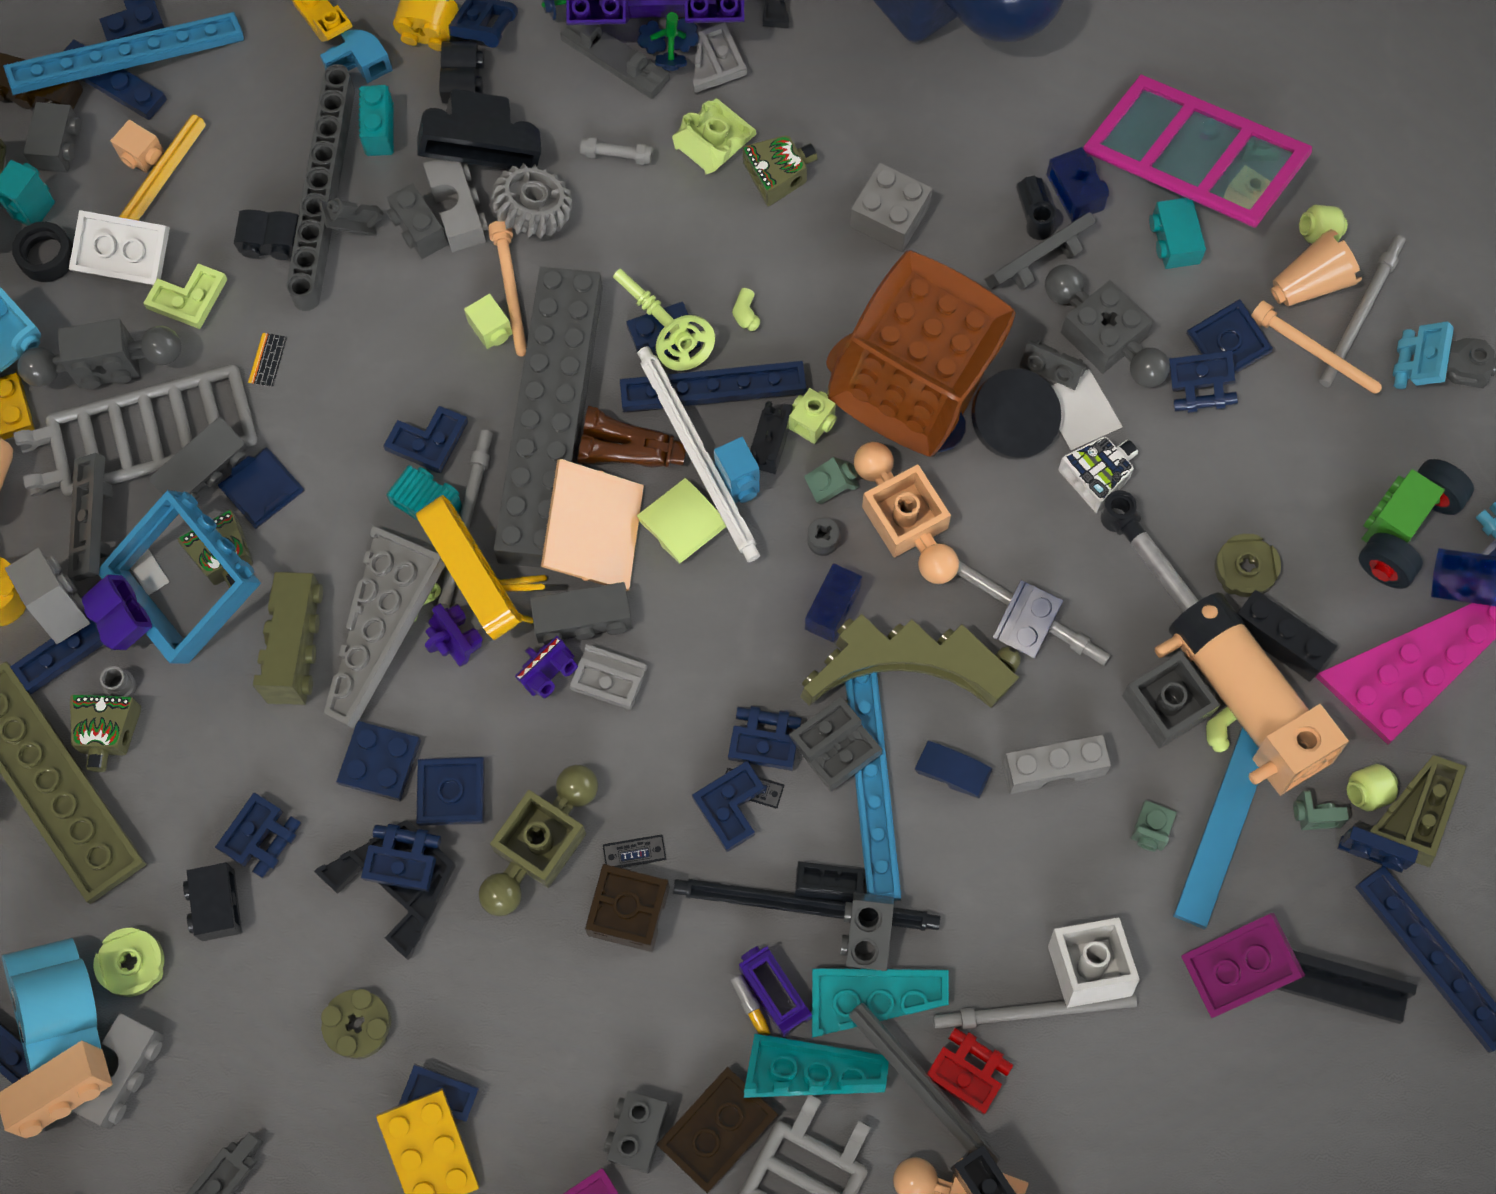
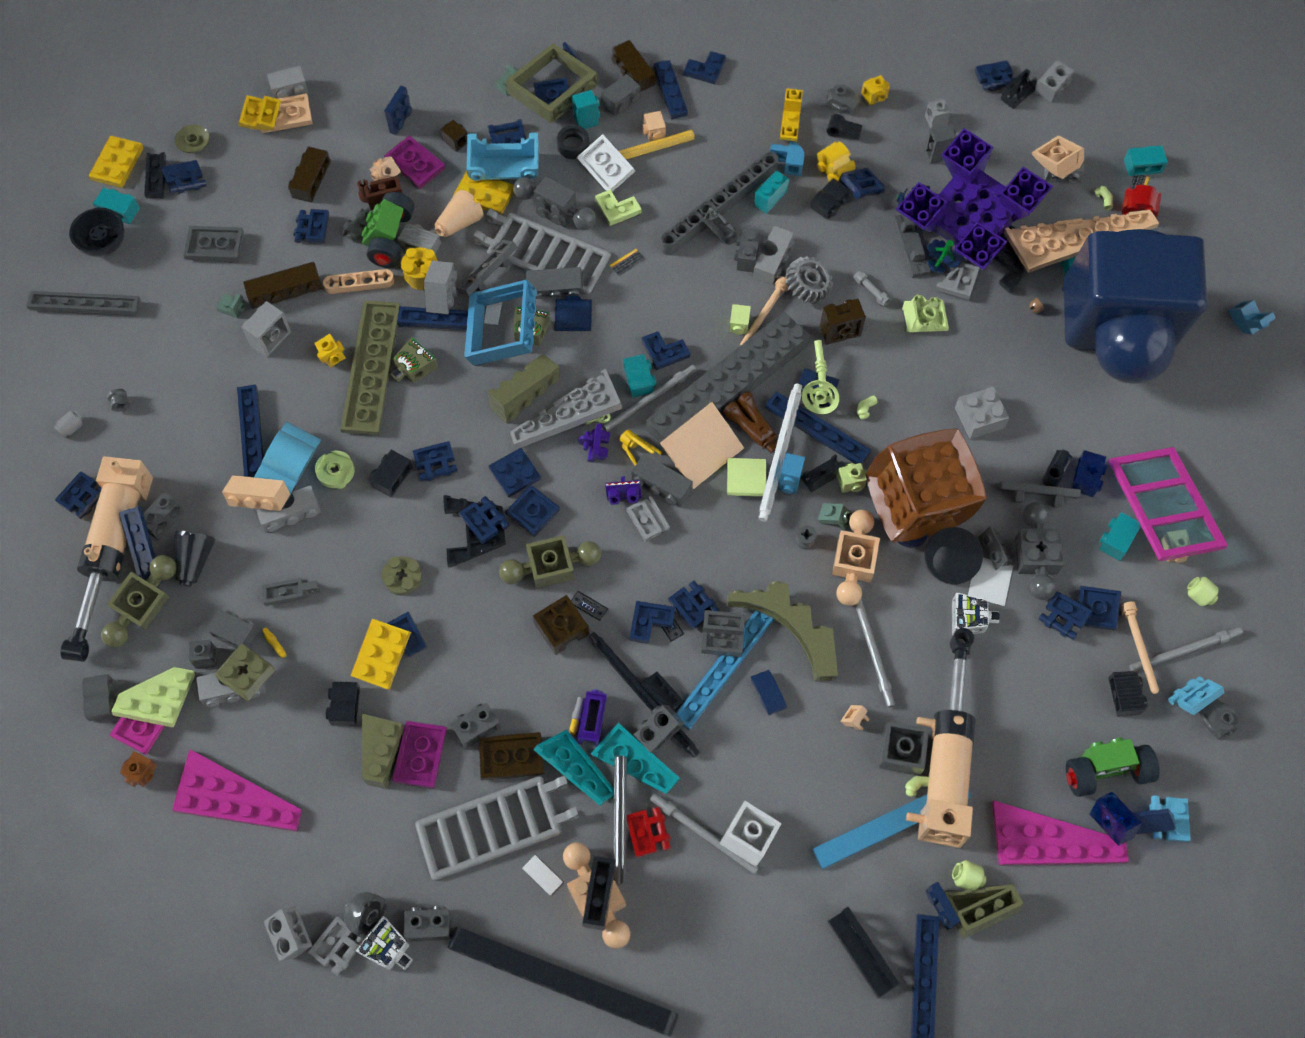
camera: 40 degrees right, 5 degrees down
(116, 612) = (461, 317): dark purple brick -> none
(123, 53) = (685, 80): dark azure tile -> none
(124, 689) = (438, 353): light grey piece -> none
(266, 233) = (674, 204): black brick -> none
(468, 567) = (627, 417): yellow beam -> none
(478, 132) = (811, 230): black brick -> none
(622, 222) = (842, 321): none -> dark brown piece
(777, 166) = (943, 353): torso -> none
(833, 602) = (782, 569): clear blue brick -> none
(836, 18) = (1038, 306): none -> medium nougat hinge
(1009, 658) = (842, 665): olive hinge -> none
(1028, 619) = (869, 654): plate -> none
(1070, 759) = (809, 723): light grey arch -> none
(1079, 710) = (854, 716): none -> light nougat tile
(1153, 826) = (841, 800): sand green bracket -> none
(1237, 580) = (1016, 717): olive plate -> none
(1243, 965) = (821, 898): magenta plate -> none
(1285, 636) = (991, 767): black brick -> none
(1317, 271) = (1176, 610): light nougat cone -> none
(1322, 817) = (929, 868): sand green bracket -> none
(1349, 416) = (1127, 693): none -> black brick

